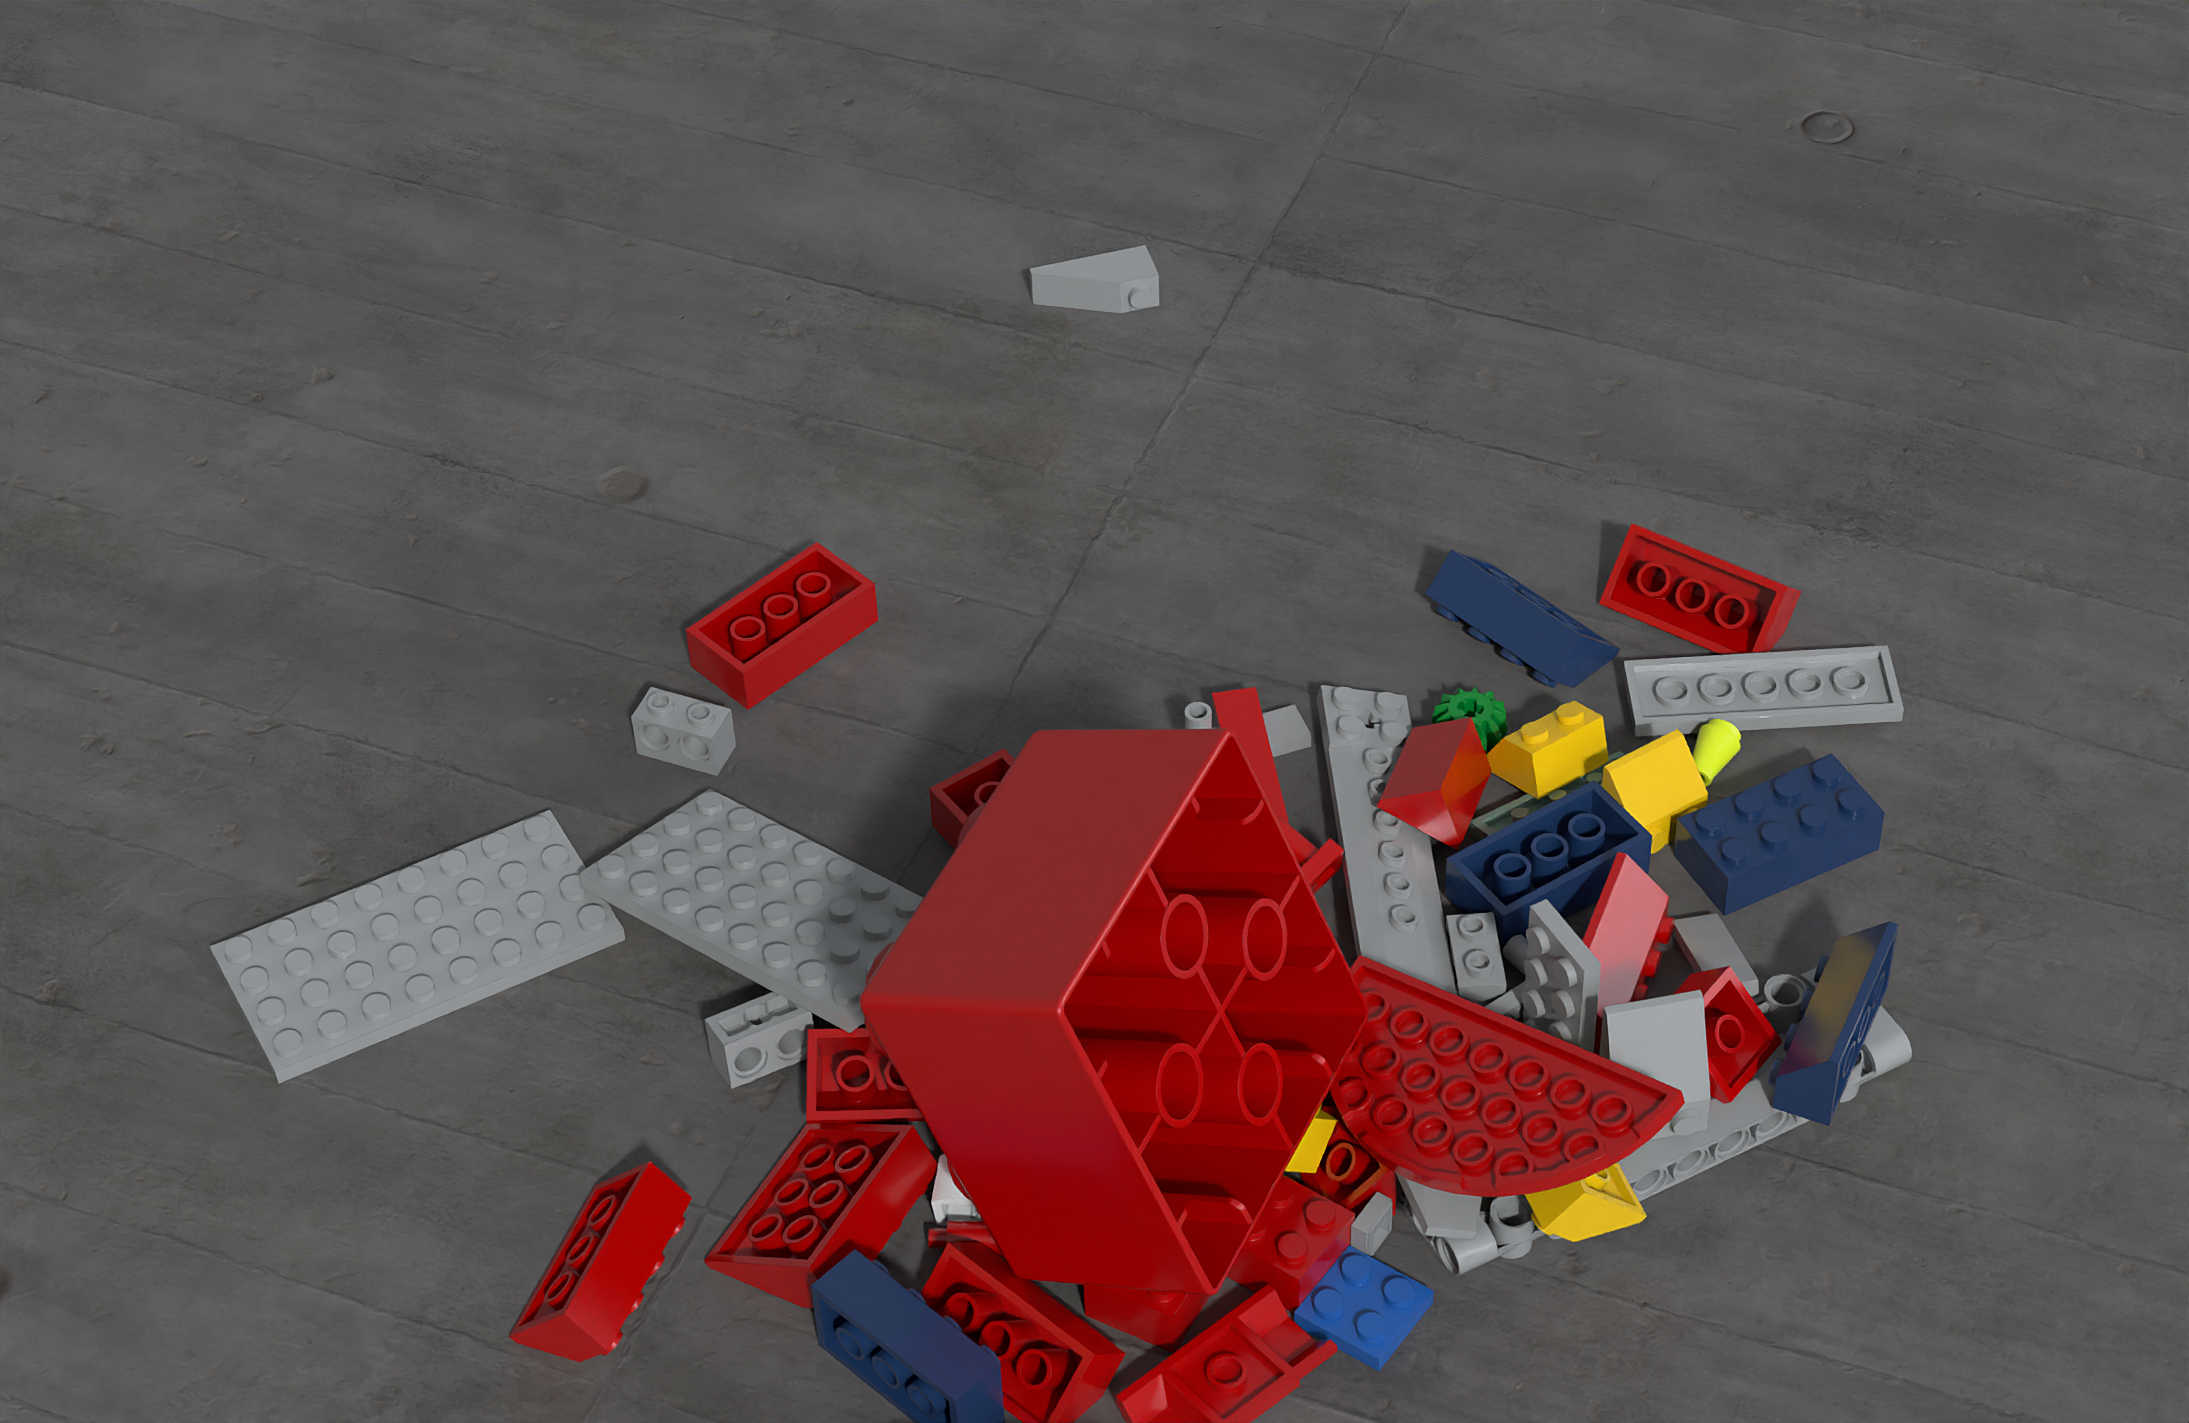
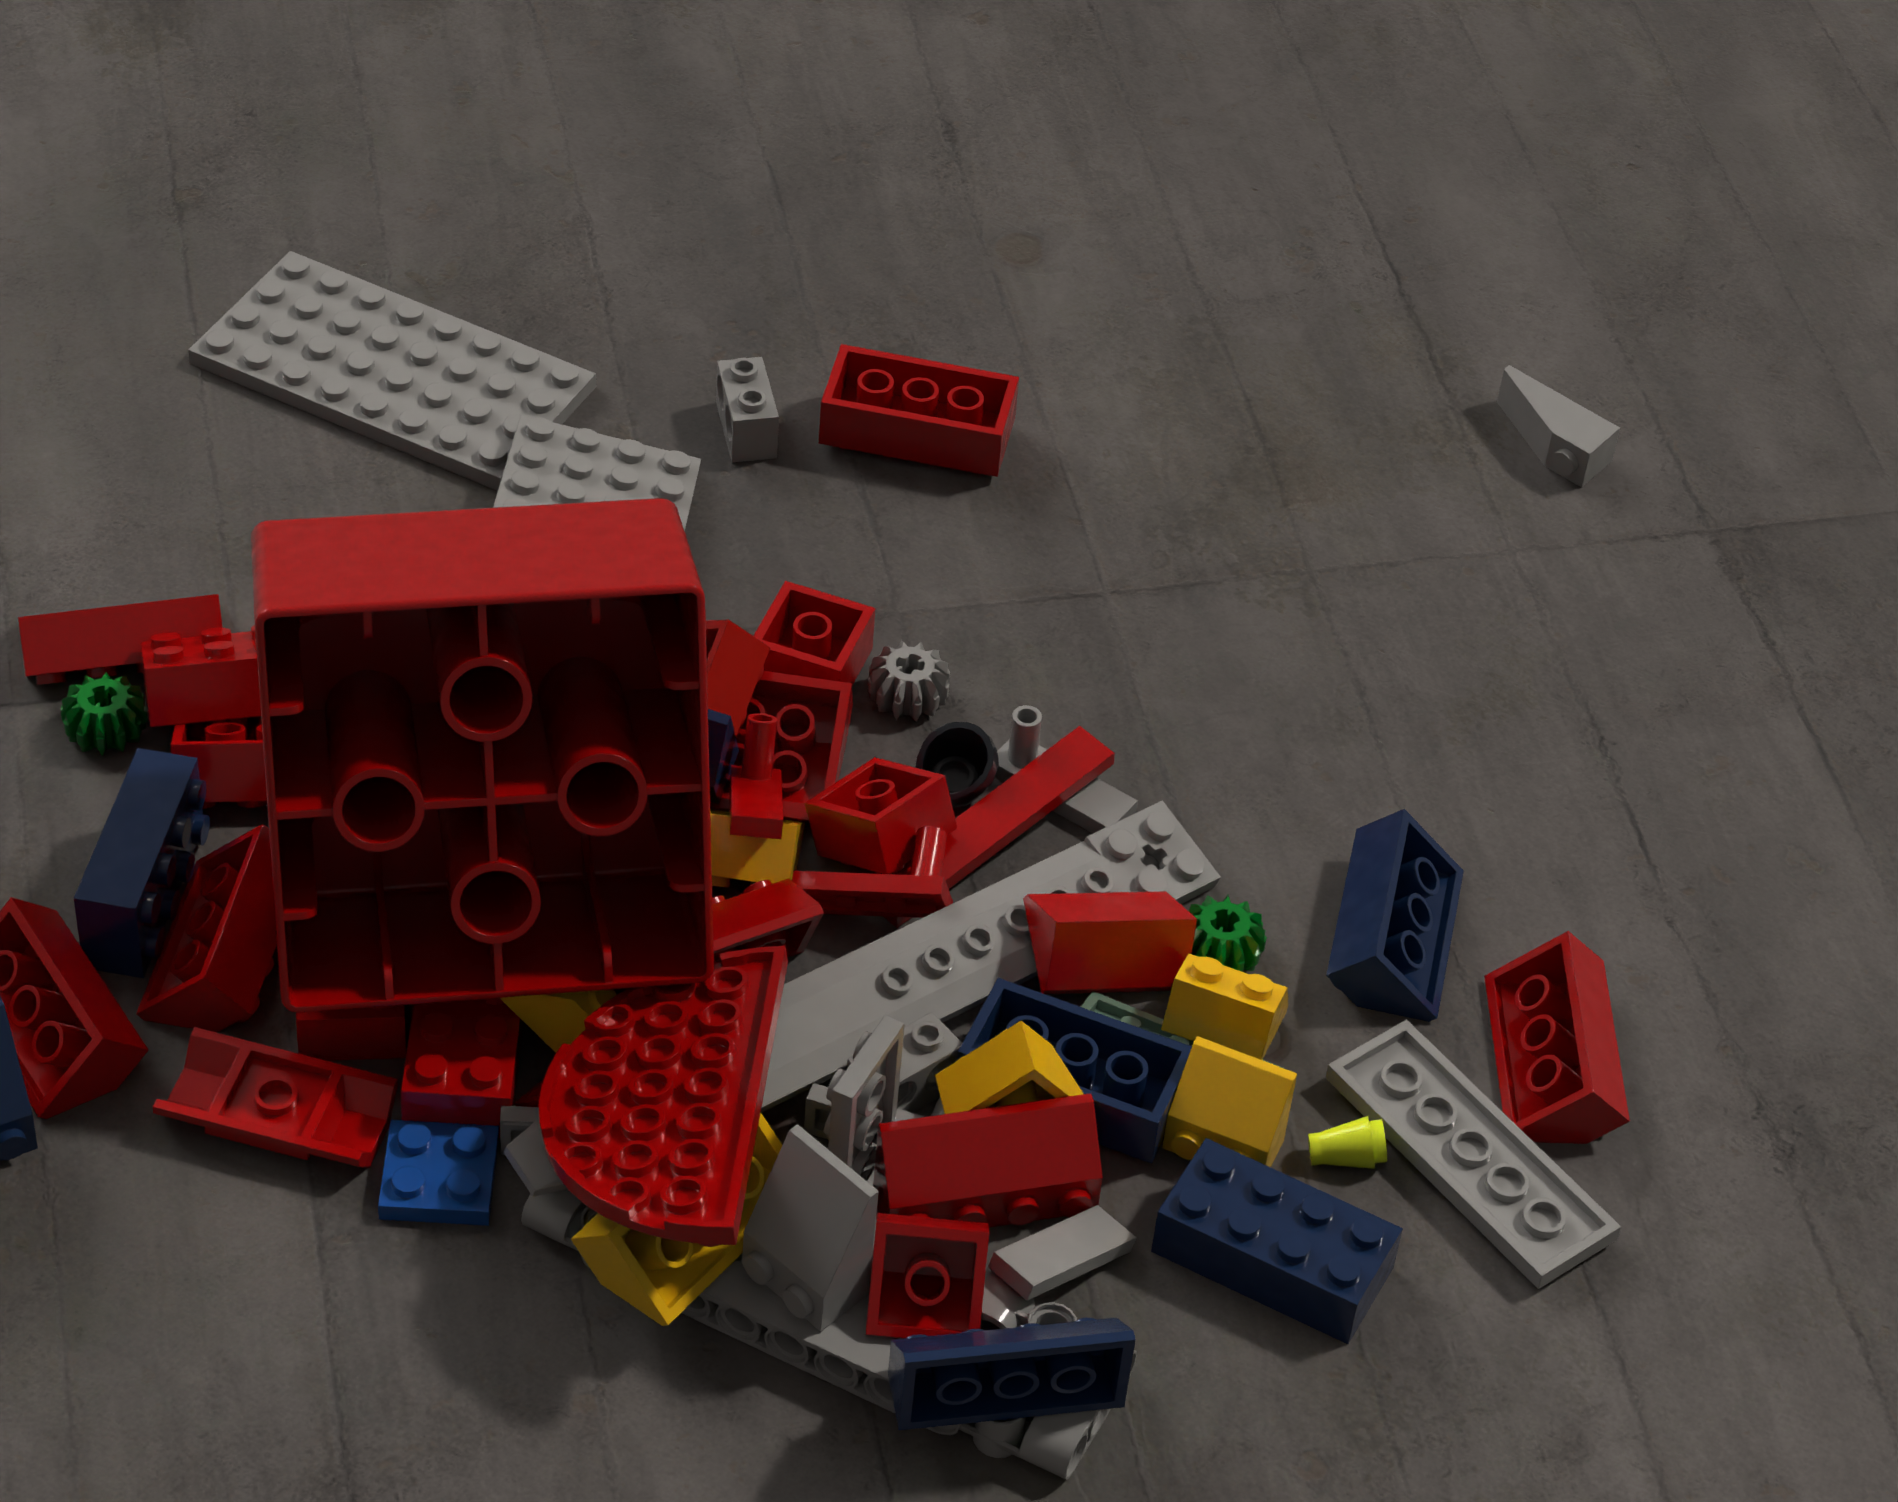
camera: 50 degrees right, 0 degrees up
(690, 1316) = (104, 713): none -> green gear
(741, 1190) = (201, 677): none -> red brick
(1570, 885) = (1006, 1071): none -> yellow slope

